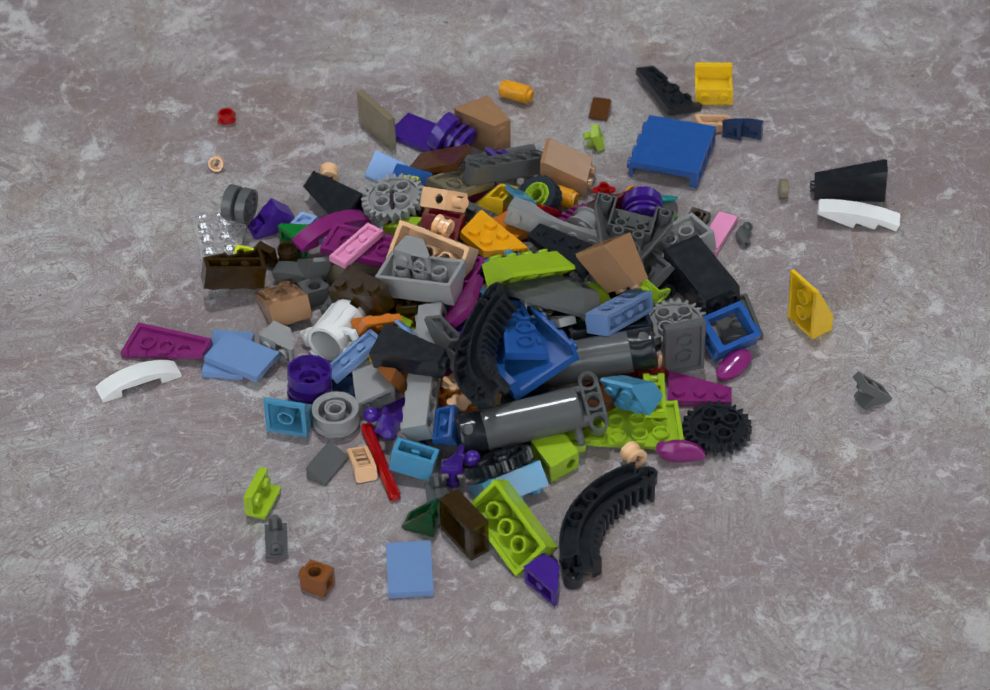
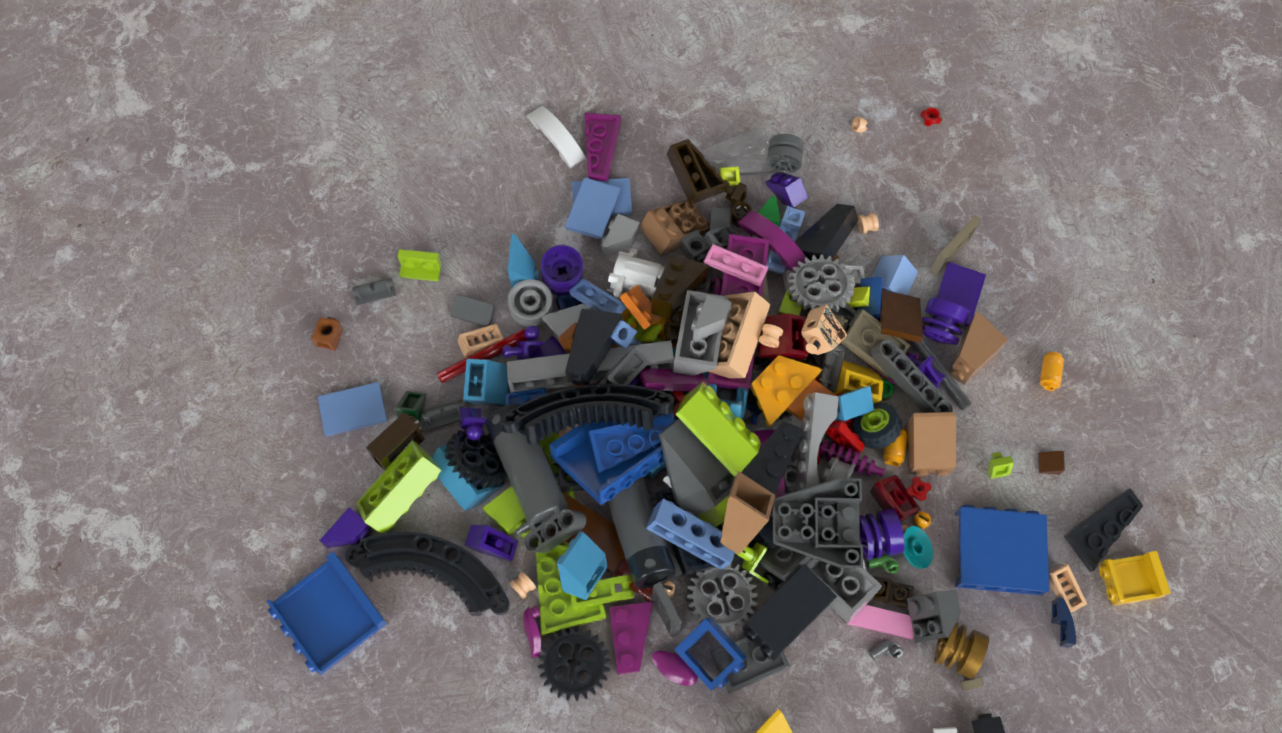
camera: 75 degrees right, 25 degrees up
(583, 472) = (491, 542): none -> dark purple slope
(626, 601) = (326, 615): none -> blue panel
(723, 191) = (933, 614): none -> dark grey slope
(754, 183) = (964, 650): none -> pearl gold wheel

